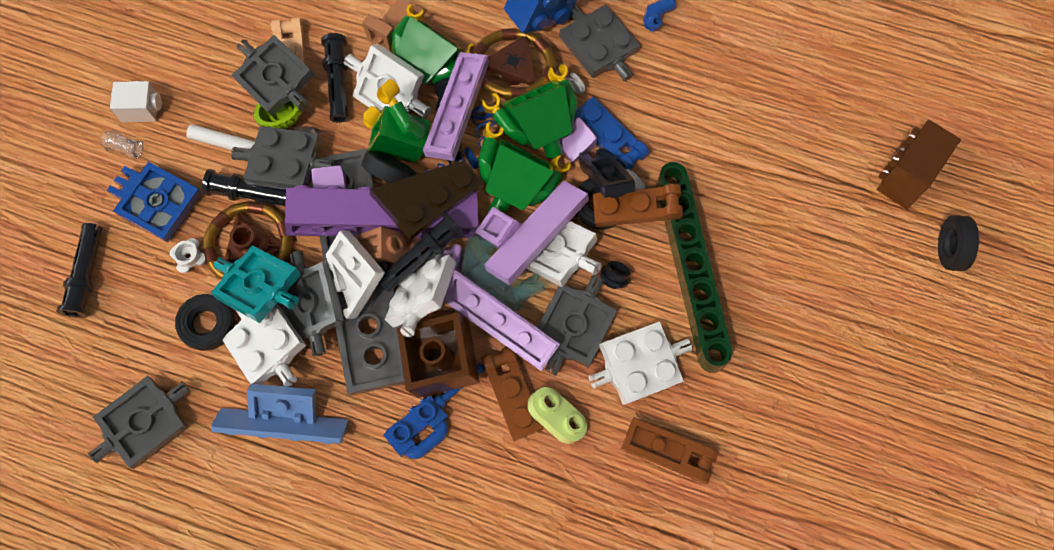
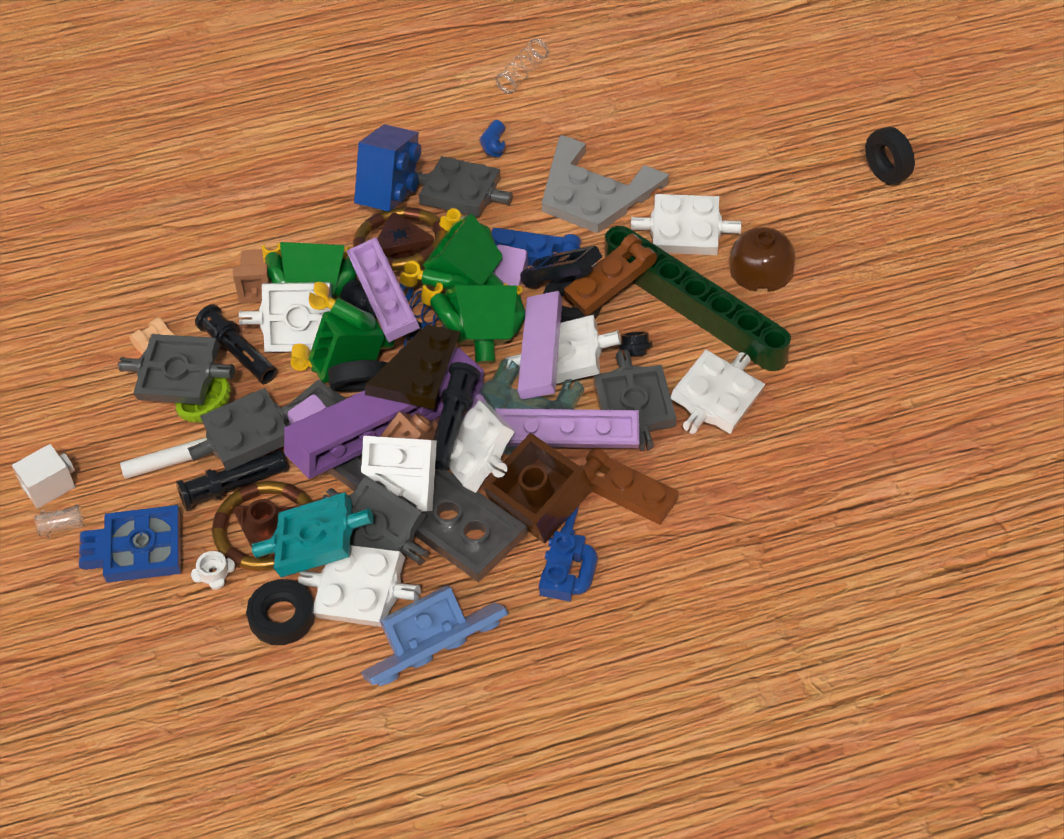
camera: 35 degrees left, 20 degrees down
(79, 283) = (118, 659): black pin -> none
(140, 422) = (290, 730): dark grey plate -> none
(497, 227) = (502, 361): lavender slope -> none
(557, 417) = (682, 472): yellowish green plate -> none
(668, 450) = (800, 440): dark orange plate -> none
(688, 114) = (591, 198): none -> light grey wing
(743, 192) = (686, 224): none -> white plate
(774, 267) = (762, 259): none -> reddish brown cylinder
(917, 163) = (808, 120): reddish brown brick -> none

